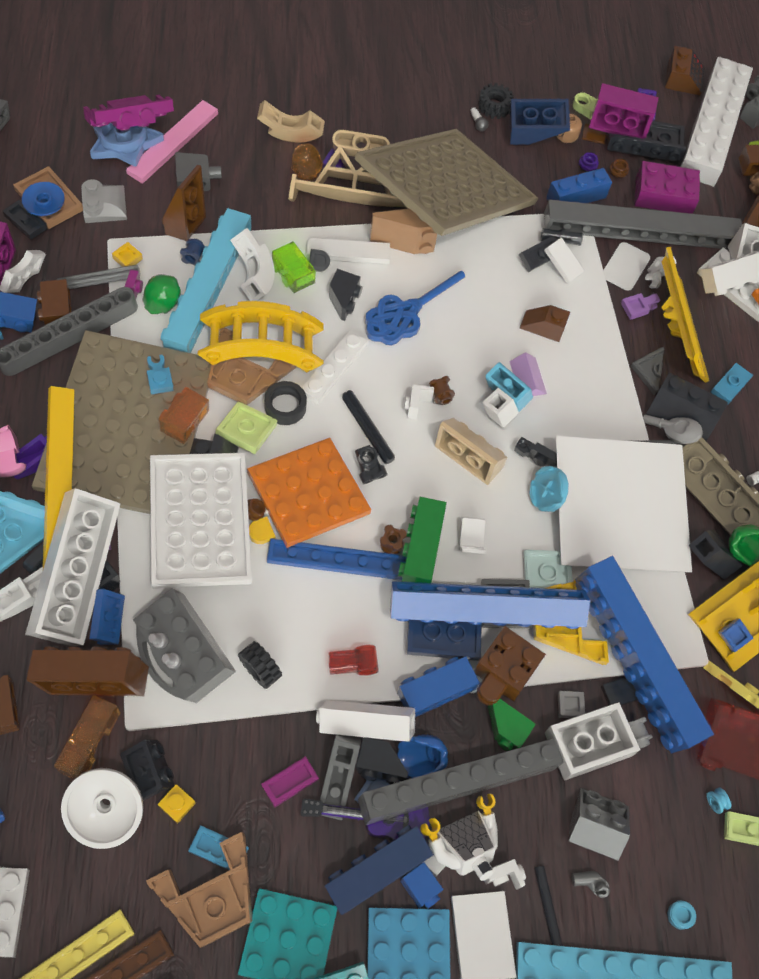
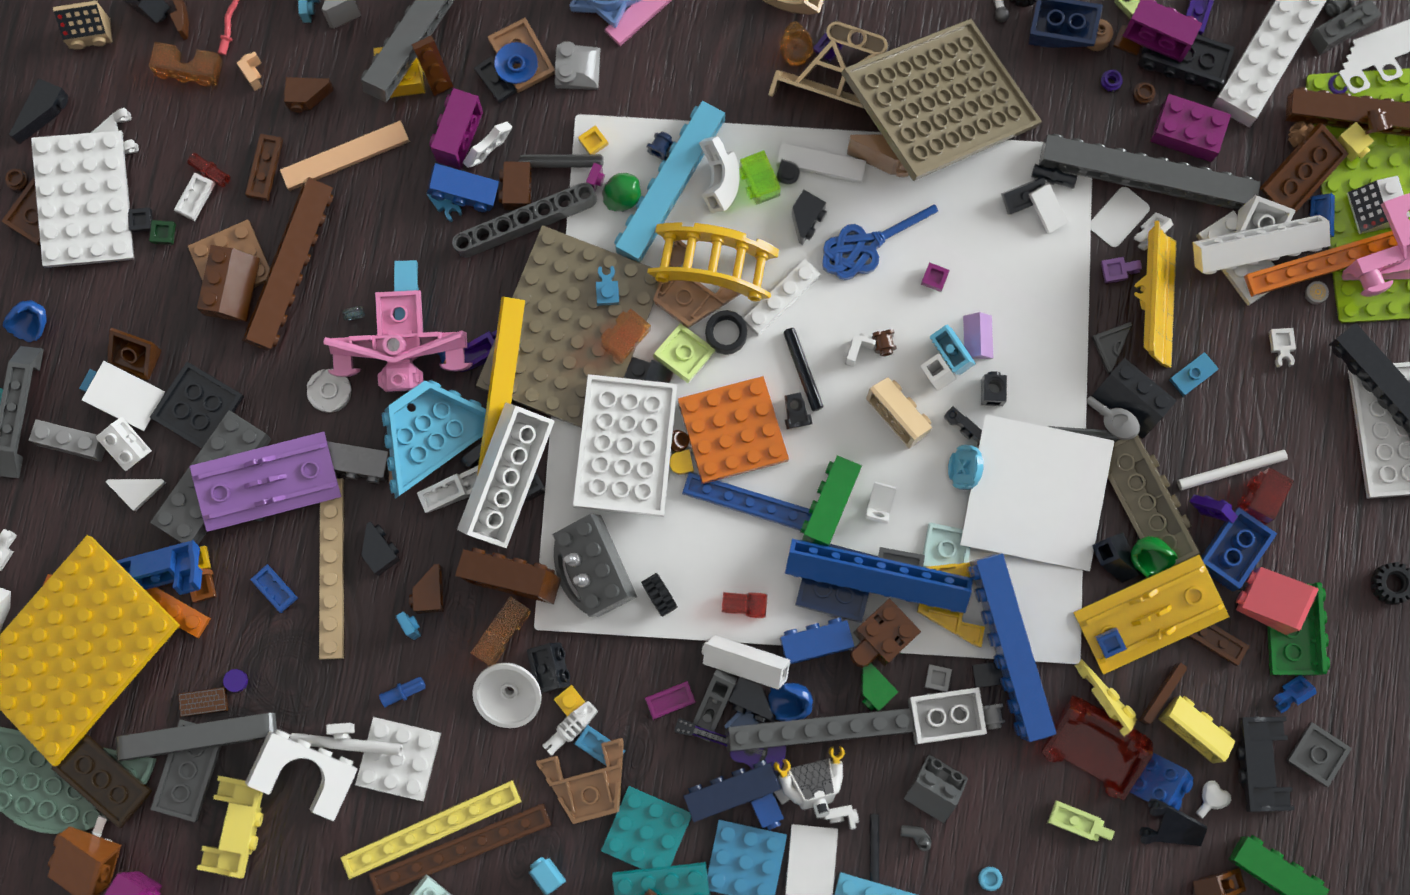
camera: 20 degrees right, 15 degrees up
(107, 617) = (530, 525): blue bracket -> none
(182, 832) = (571, 727): none -> white hinge
(186, 207) = (659, 95): reddish brown slope -> none
(187, 162) = (675, 43): dark grey torso -> none
(392, 535) = (803, 487): reddish brown brick -> none
(476, 330) = (935, 277): none -> magenta plate
(546, 321) = (1009, 278): reddish brown slope -> none
(553, 425) = (990, 398): none -> black brick
(581, 187) = (1090, 117): blue brick -> none
(718, 800) = (1051, 789): medium azure bush -> none

